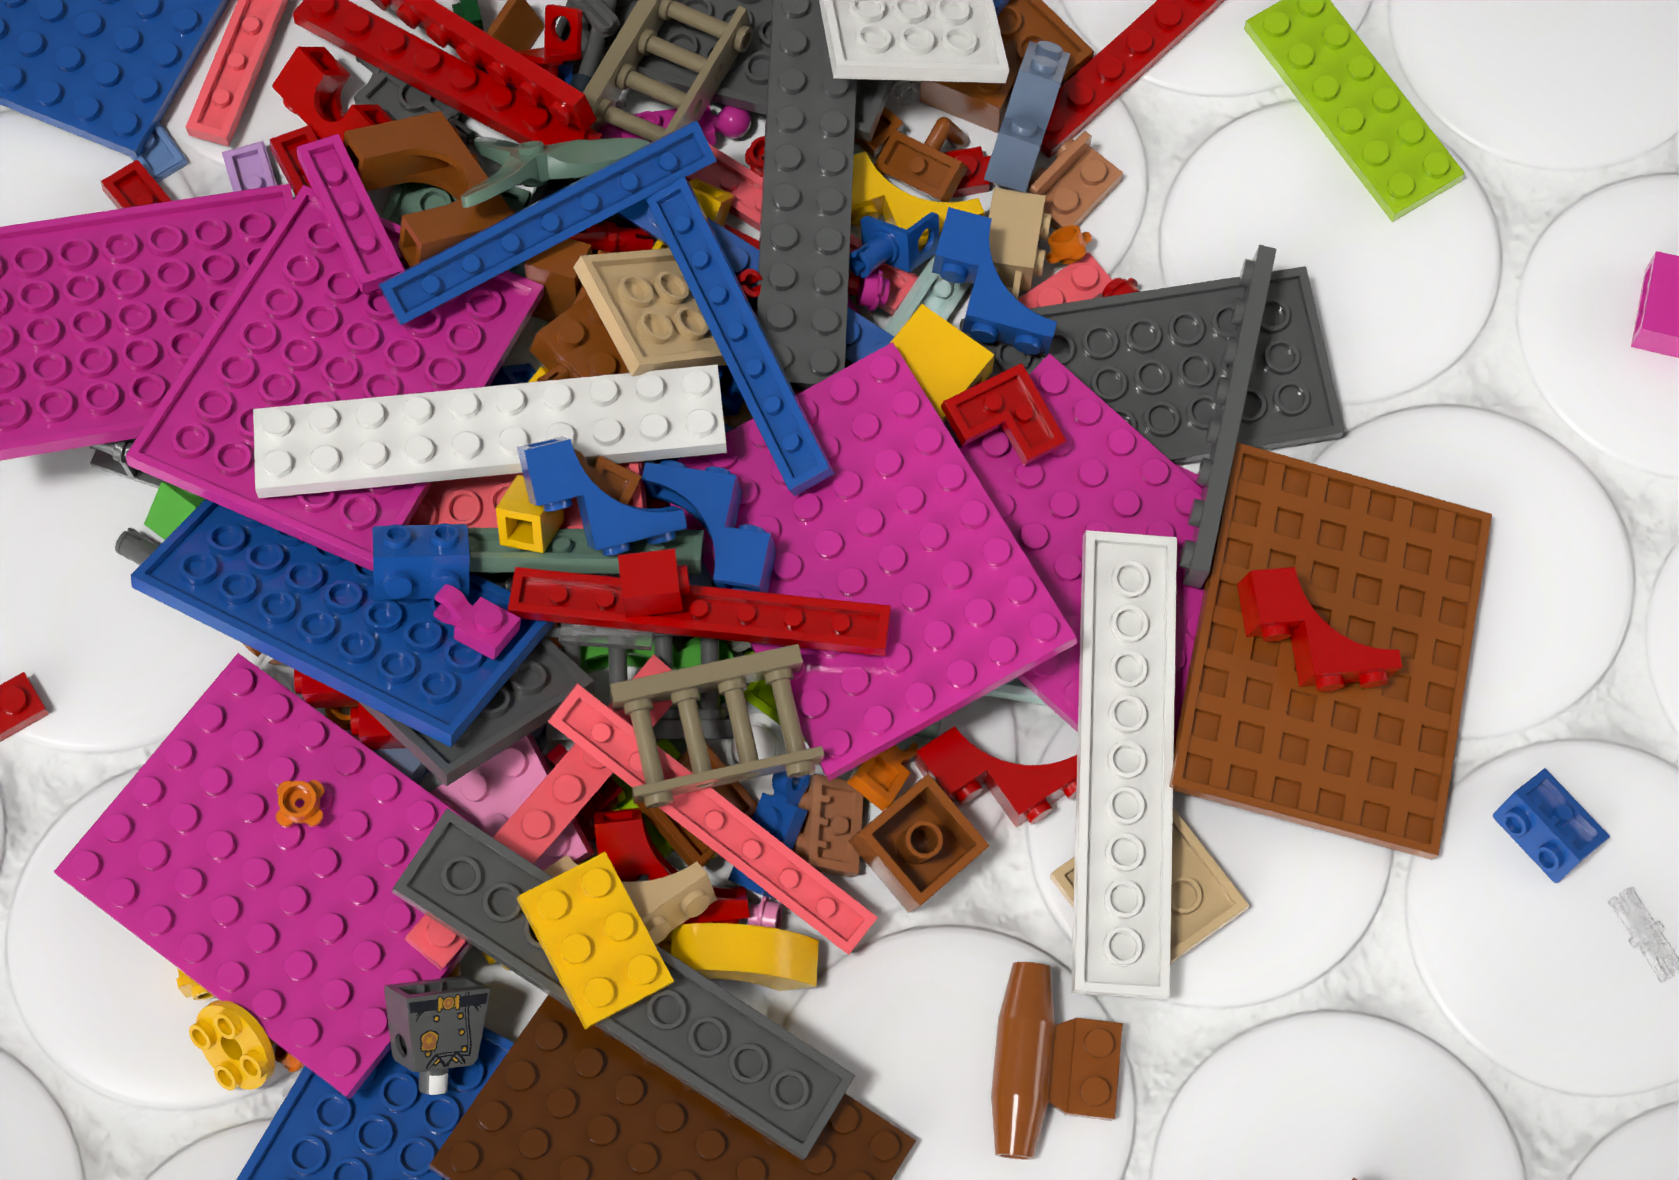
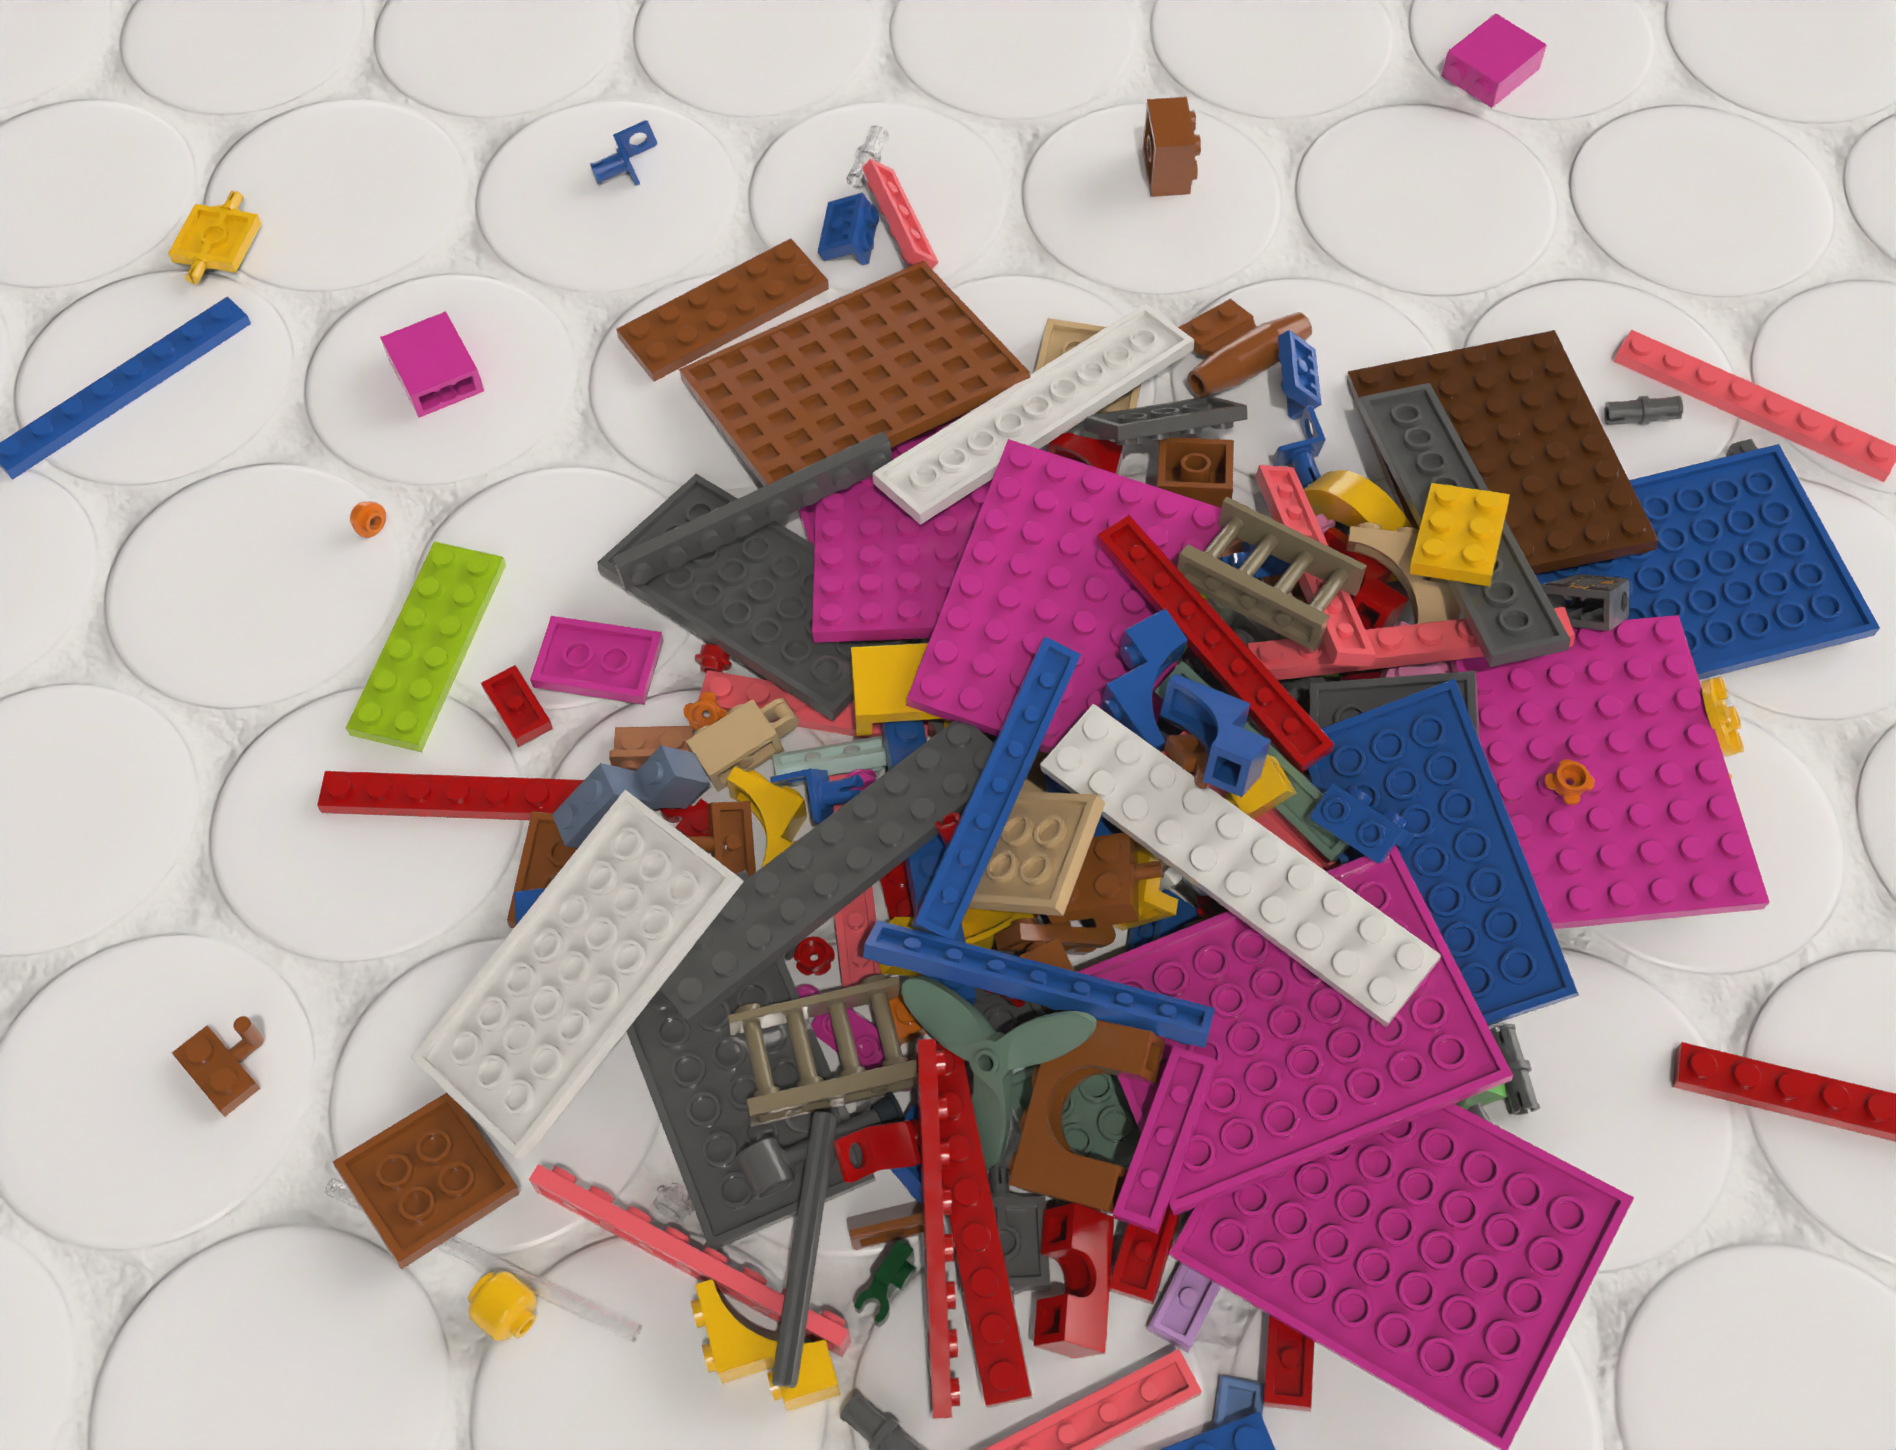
camera: 130 degrees left, 10 degrees down
(479, 626) = (1360, 751): dark pink plate -> none
(652, 582) = (1232, 660): red brick -> none
(860, 988) = (1302, 453): none -> blue bracket
(949, 1069) = (1299, 374): none -> blue bracket
(992, 310) = (789, 729): blue arch -> none
(1007, 873) = (1161, 419): none -> dark grey plate
(1010, 403) = (882, 609): red plate -> none
(1207, 208) = (597, 660): none -> dark pink plate
(1217, 116) = (516, 705): none -> red plate
(1324, 658) = (868, 389): red arch -> none
(1528, 890) = (899, 214): none -> coral plate
(1540, 138) = (368, 518): none -> orange plate
(1548, 629) = (722, 309): none -> dark orange plate

